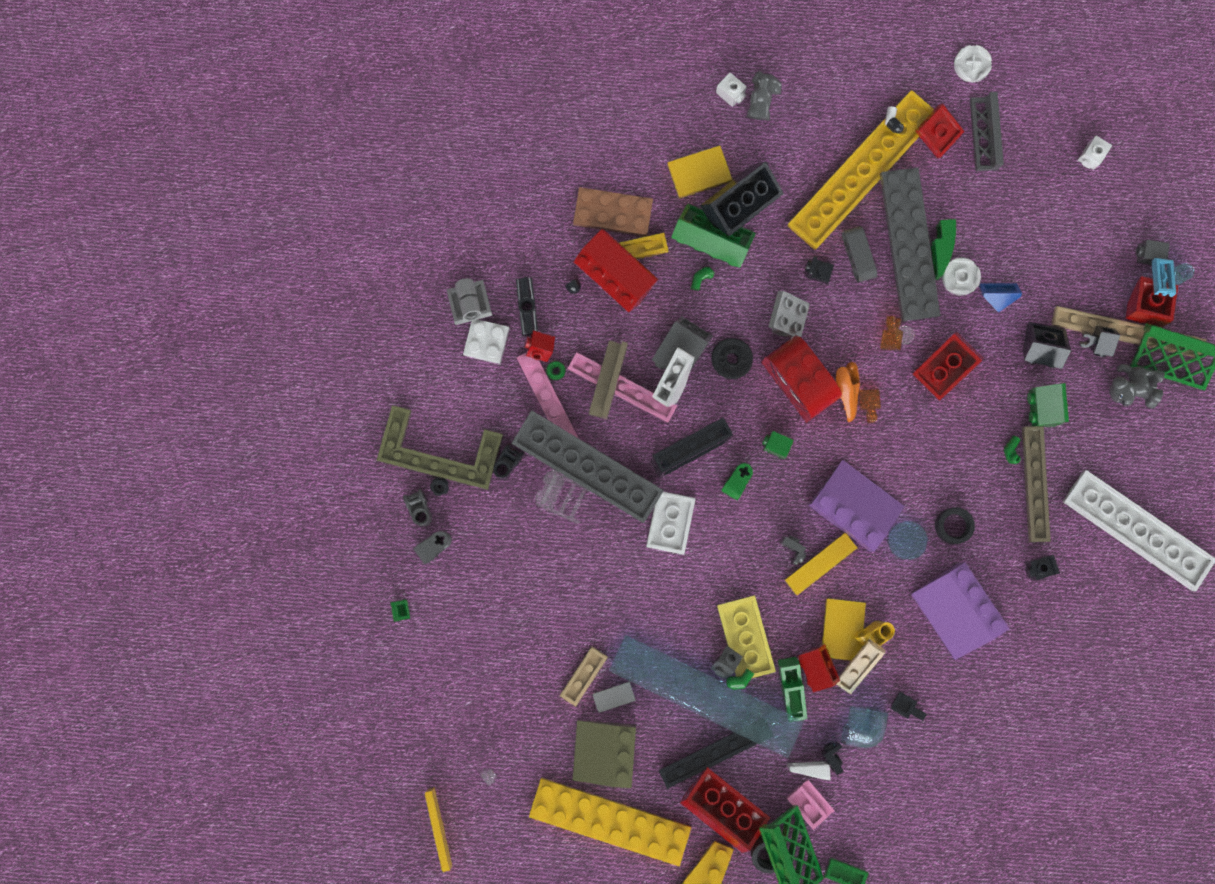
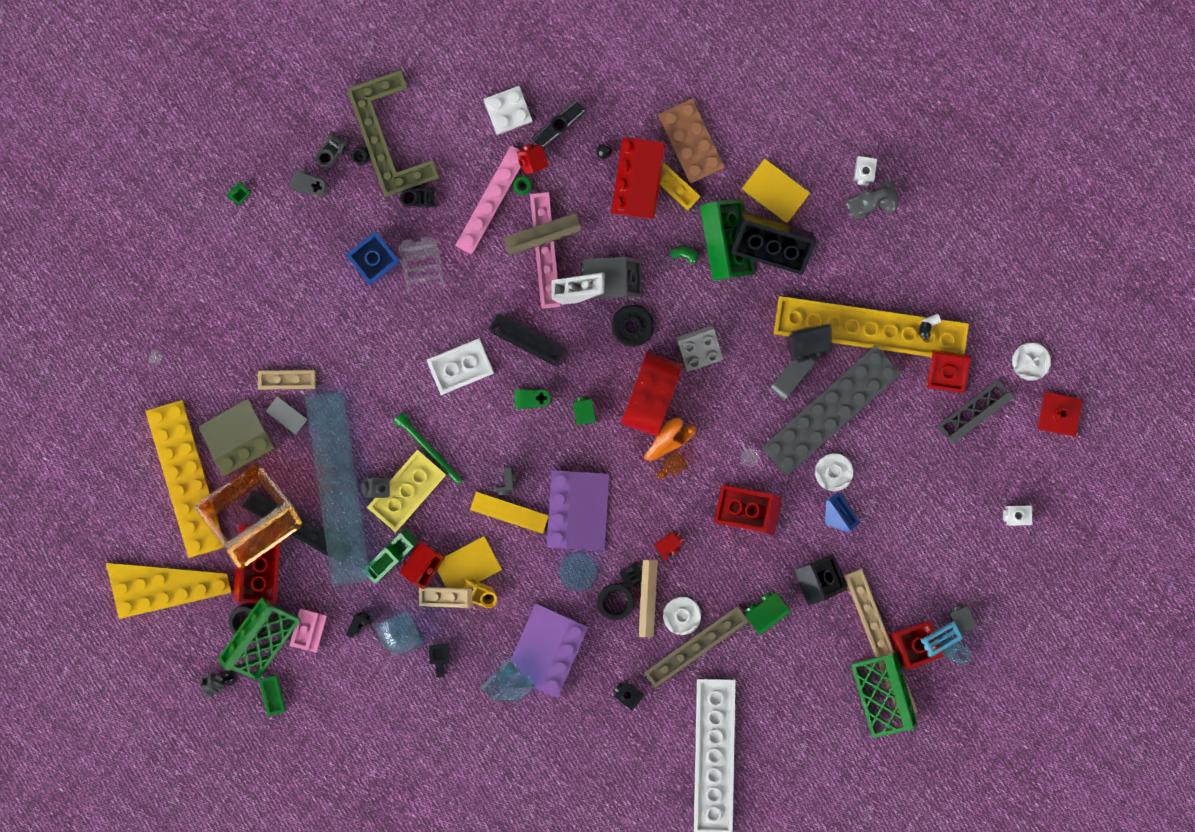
camera: 50 degrees right, 5 degrees up
(438, 829) = (86, 345): yellow tile -> none
(468, 301) = (530, 73): light grey plate -> none
(532, 533) = (373, 258): none -> blue brick
(587, 466) = (458, 266): dark grey plate -> none
(685, 601) = (403, 421): none -> green piece
(706, 790) = (262, 534): none -> clear orange windscreen
(740, 682) = (367, 509): green arm -> none
(817, 769) = (337, 614): white slope -> none
(819, 270) = (757, 348): black bracket -> none
(846, 220) = (810, 342): none -> black slope
(893, 336) = (740, 447): clear orange plate -> none
(935, 449) = (669, 544): none -> red brick
(940, 496) = (632, 575): none -> black tile
(943, 246) = (847, 439): green slope -> none
(967, 663) = (507, 683): none -> clear light blue slope
(970, 496) = (648, 598): none -> tan tile
(1001, 478) = (682, 615): none -> white tile
(1010, 452) = (710, 607): green arm -> none
(1030, 69) = (1059, 414): none -> red tile
(1102, 341) = (855, 624): brick -> none
(1141, 384) = (823, 669): dark grey animal -> none

